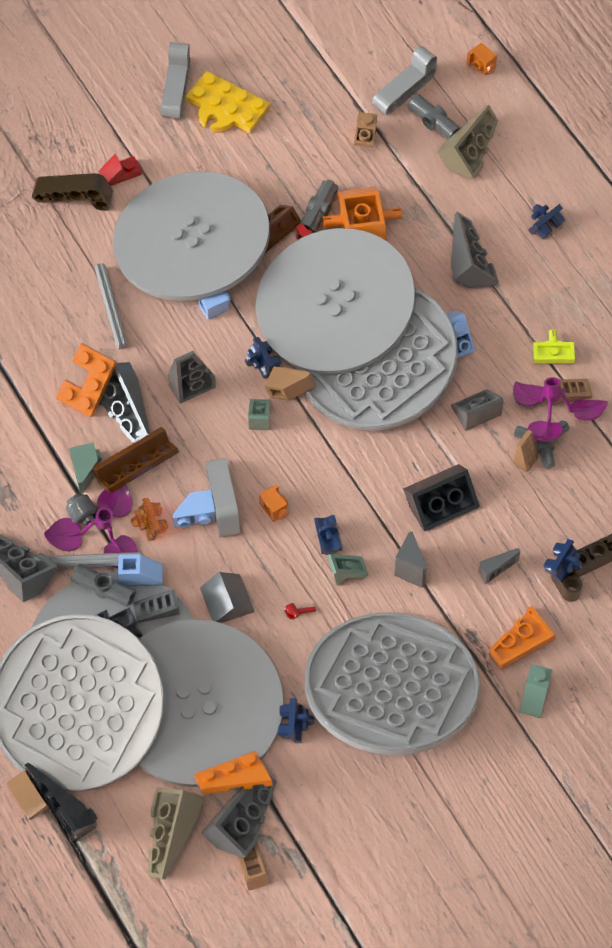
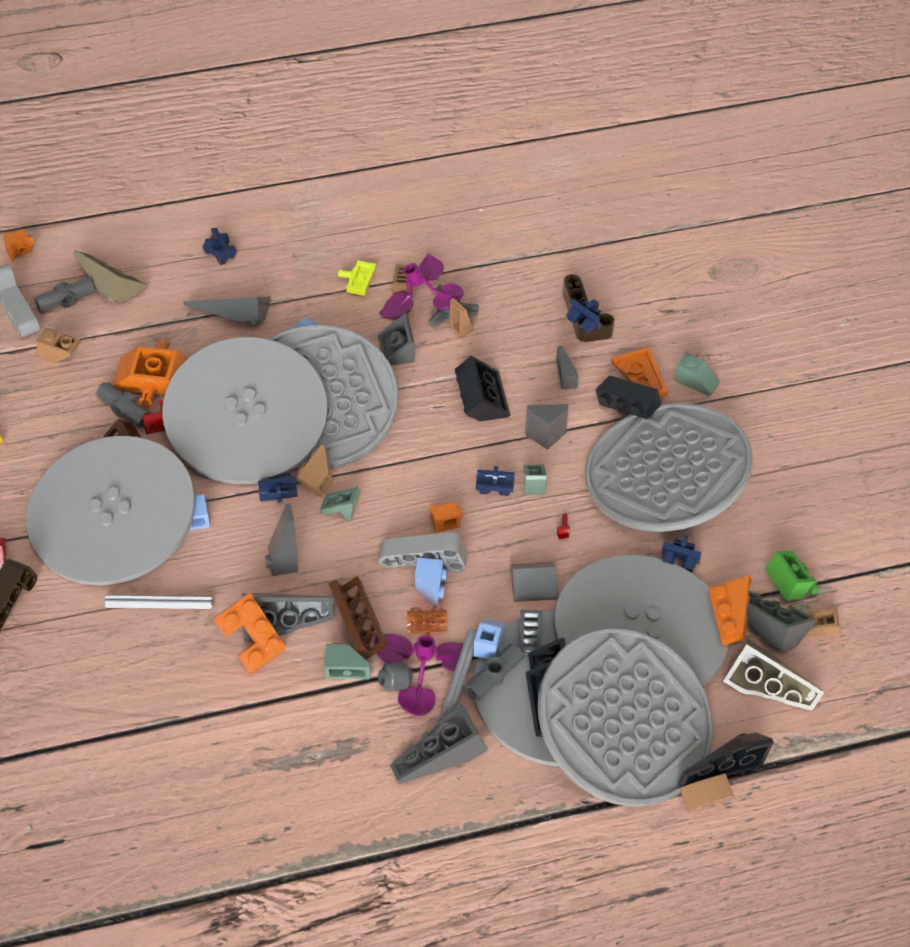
camera: 75 degrees left, 10 degrees down
(294, 824) = (791, 576): none -> bright green brick
(472, 627) = (628, 397): none -> black brick

